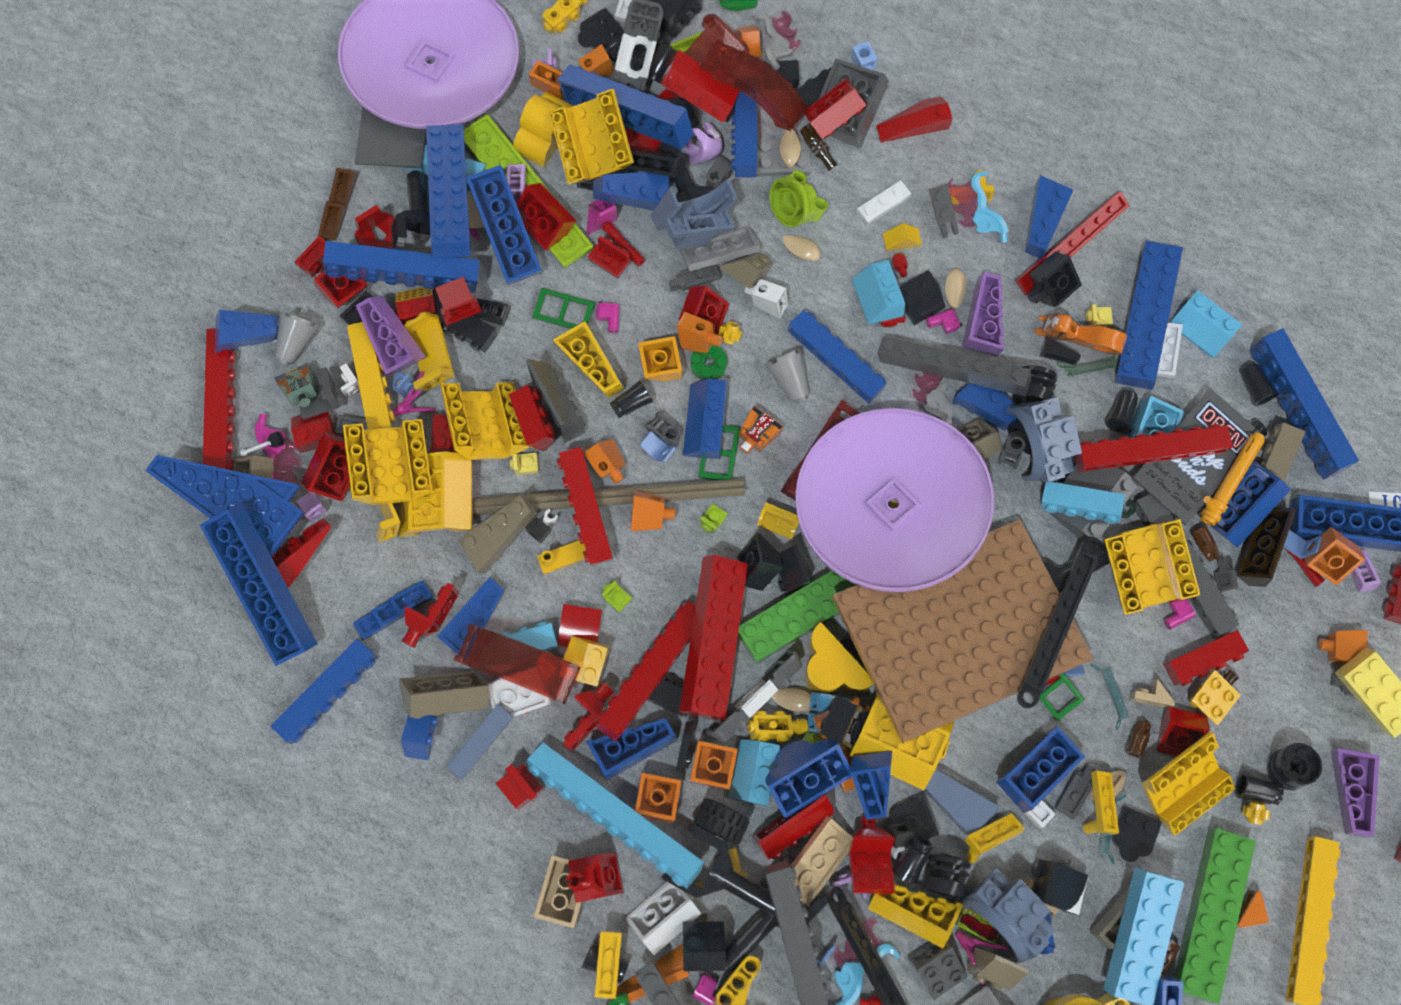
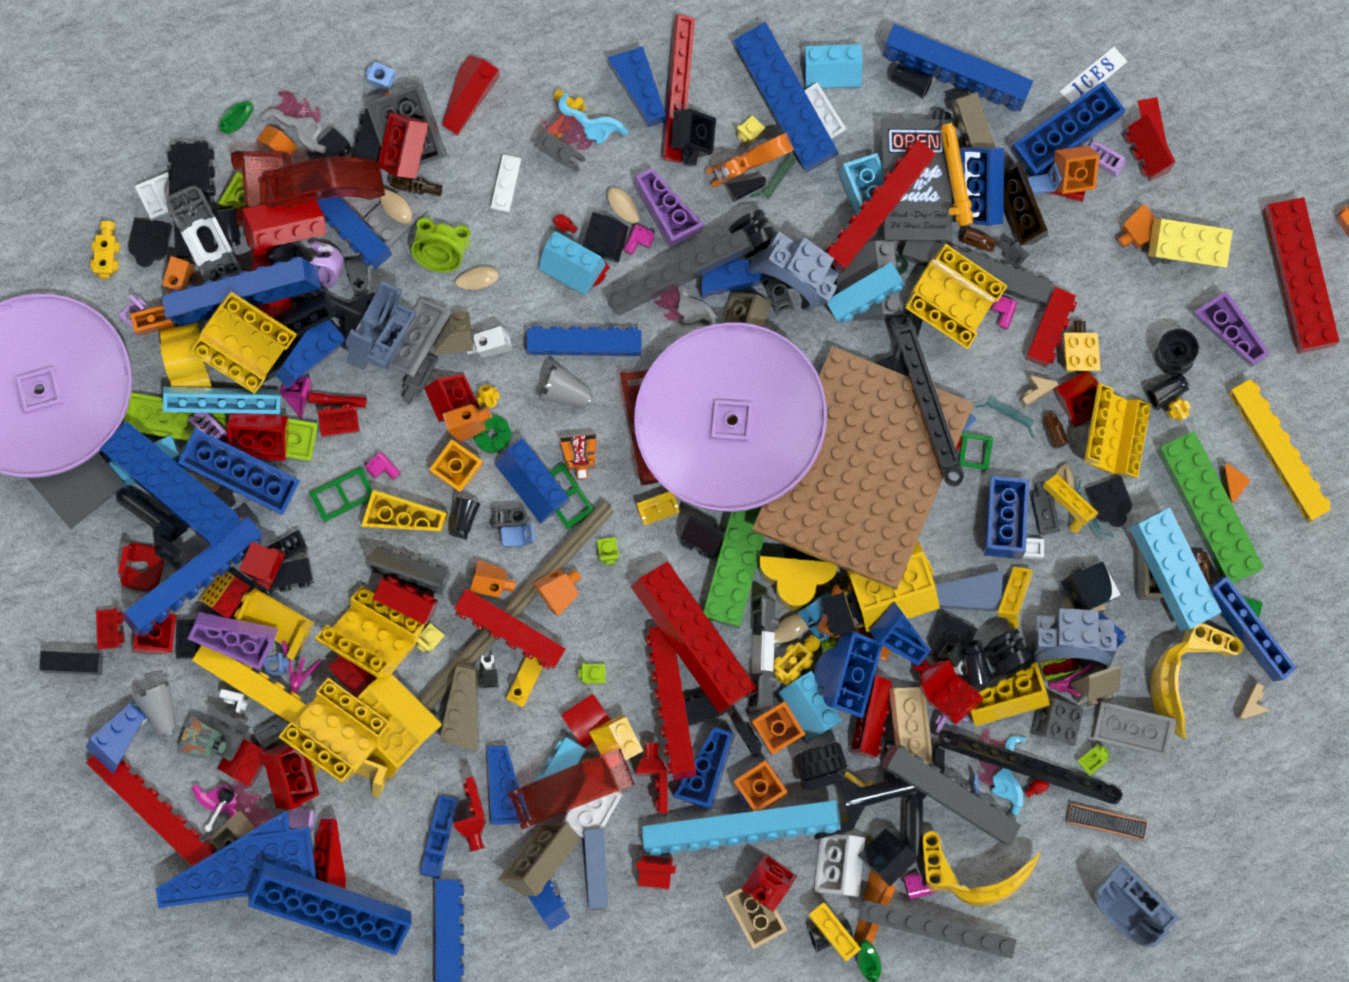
camera: 45 degrees left, 5 degrees up
(267, 255) = (71, 663): none -> black brick
(337, 205) = (82, 573): reddish brown slope -> none
(541, 169) = (221, 400): none -> medium azure brick
(762, 561) = (676, 549): black slope -> none
(902, 237) = (546, 201): yellow slope -> none
(1122, 414) = (833, 192): black plant -> none

